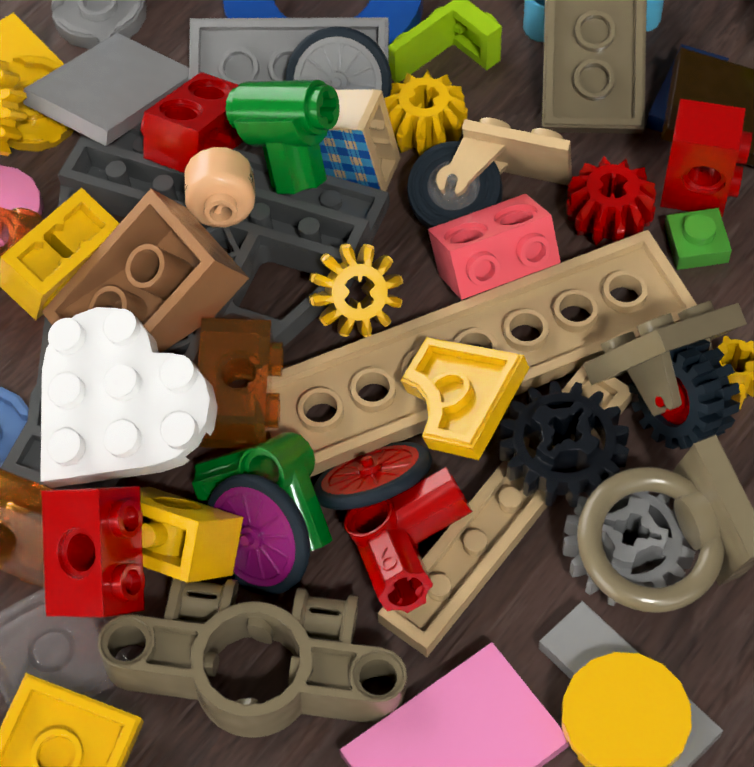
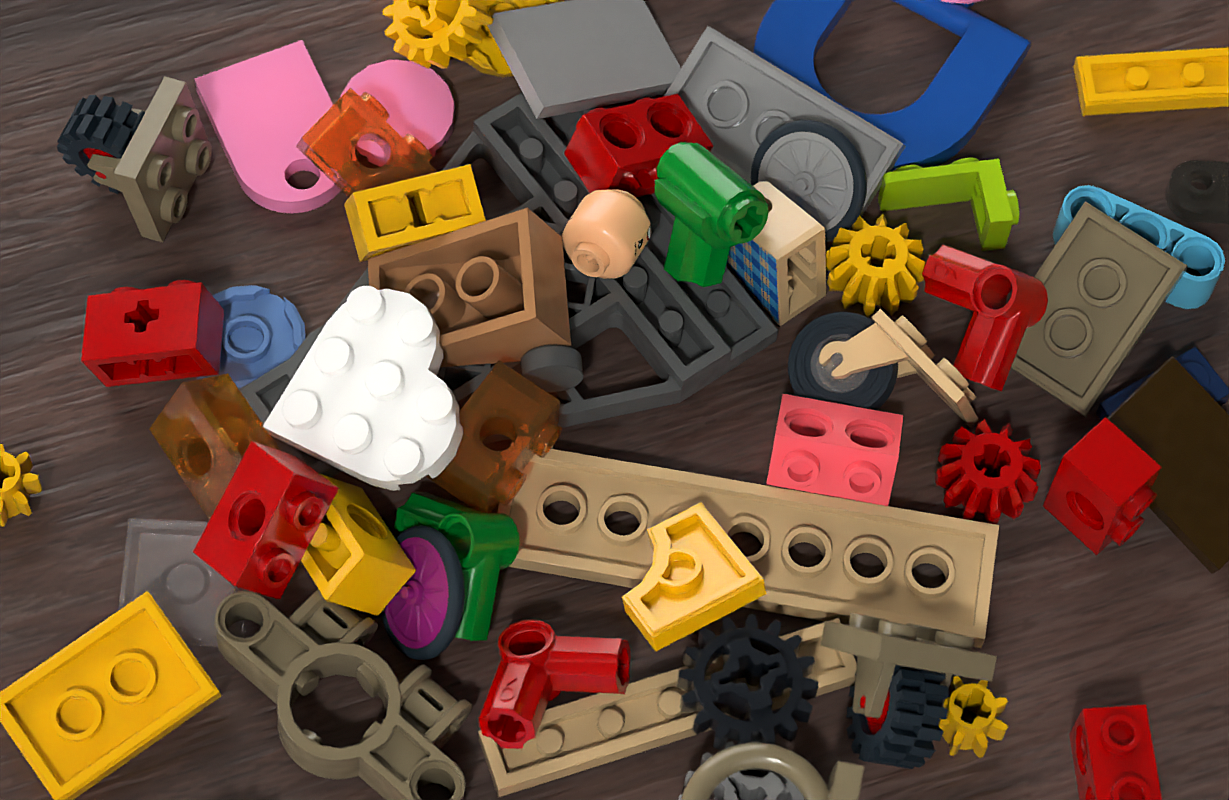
camera: 25 degrees right, 5 degrees up
(245, 301) = (552, 367): none -> dark grey tile
(373, 476) = (560, 604): wheel -> none
(375, 288) = (655, 434): yellow gear -> none
(513, 80) = (994, 326): none -> red piece
(697, 238) = (1048, 563): bright green plate -> none

